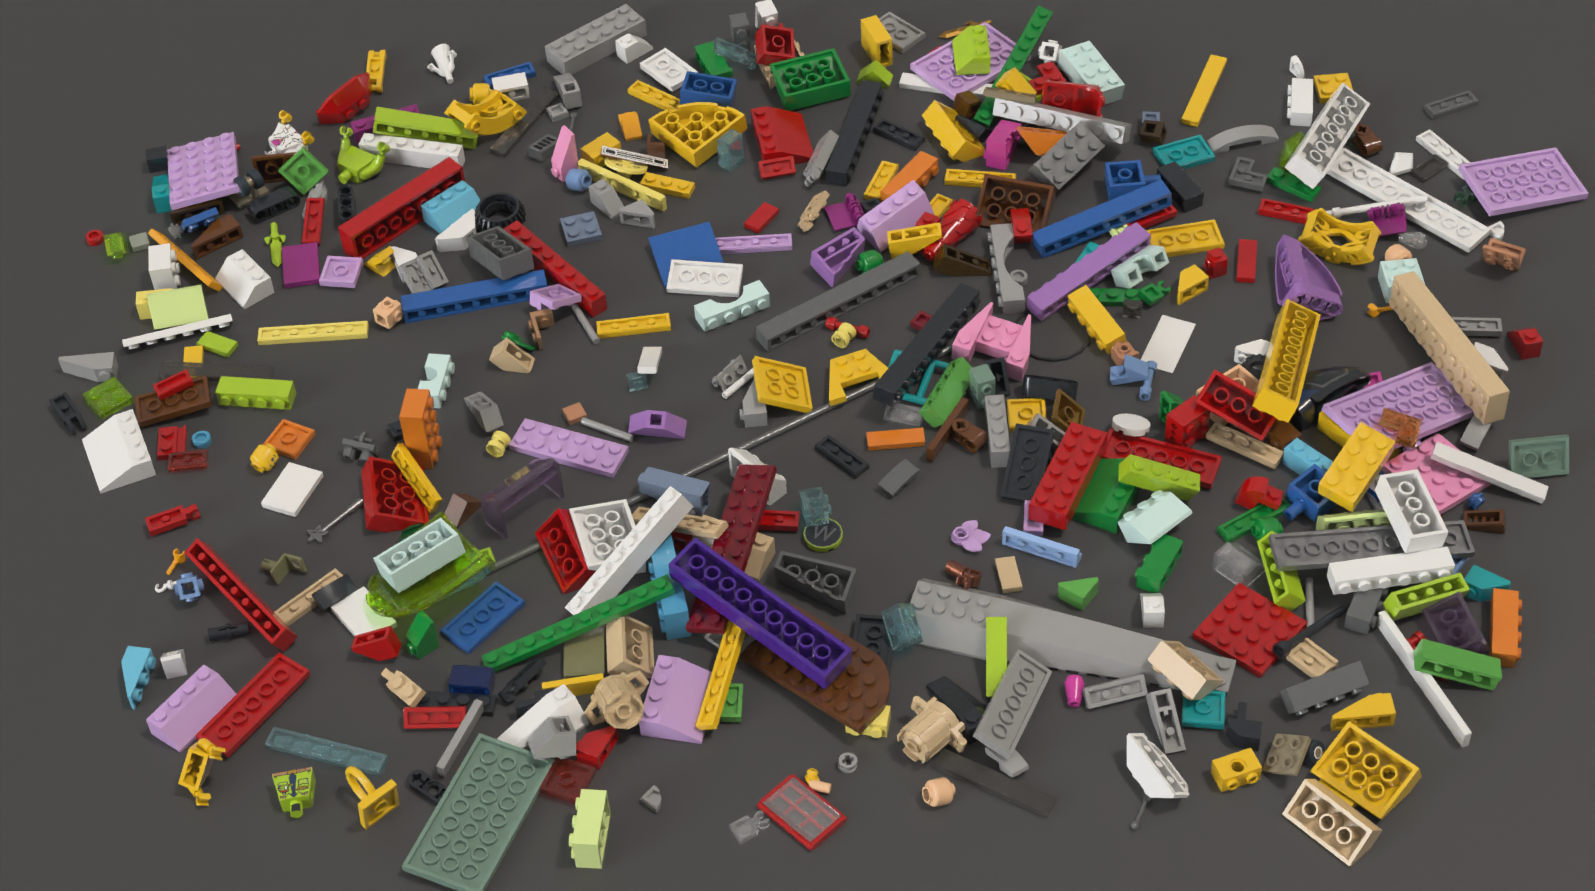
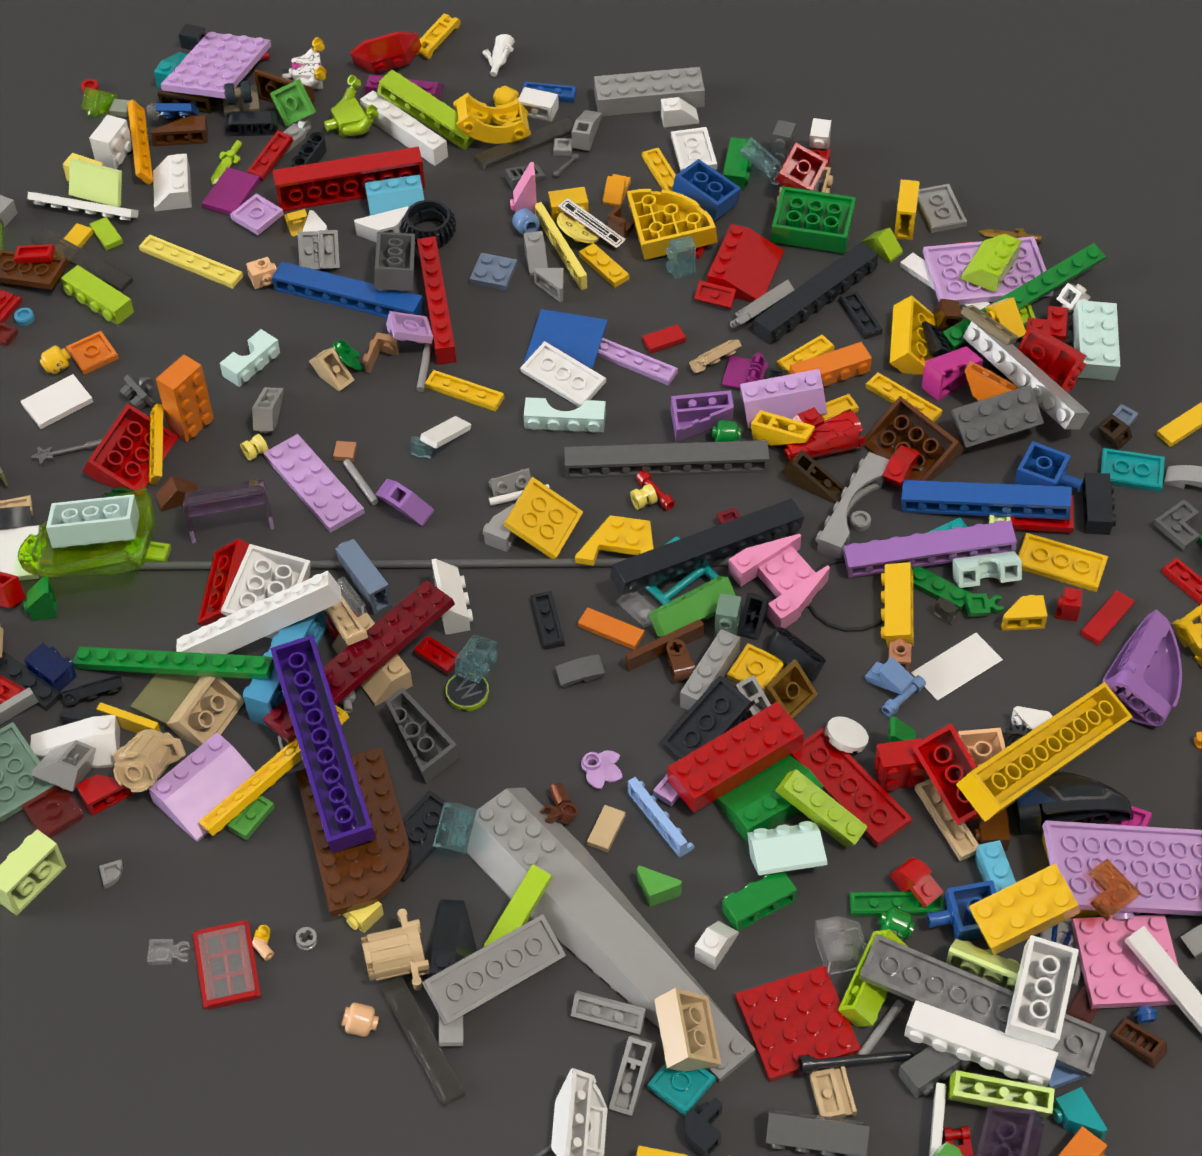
camera: 30 degrees right, 5 degrees up
(482, 617) = (112, 609): blue tile -> none
(1074, 690) = (572, 983): dark pink cone -> none

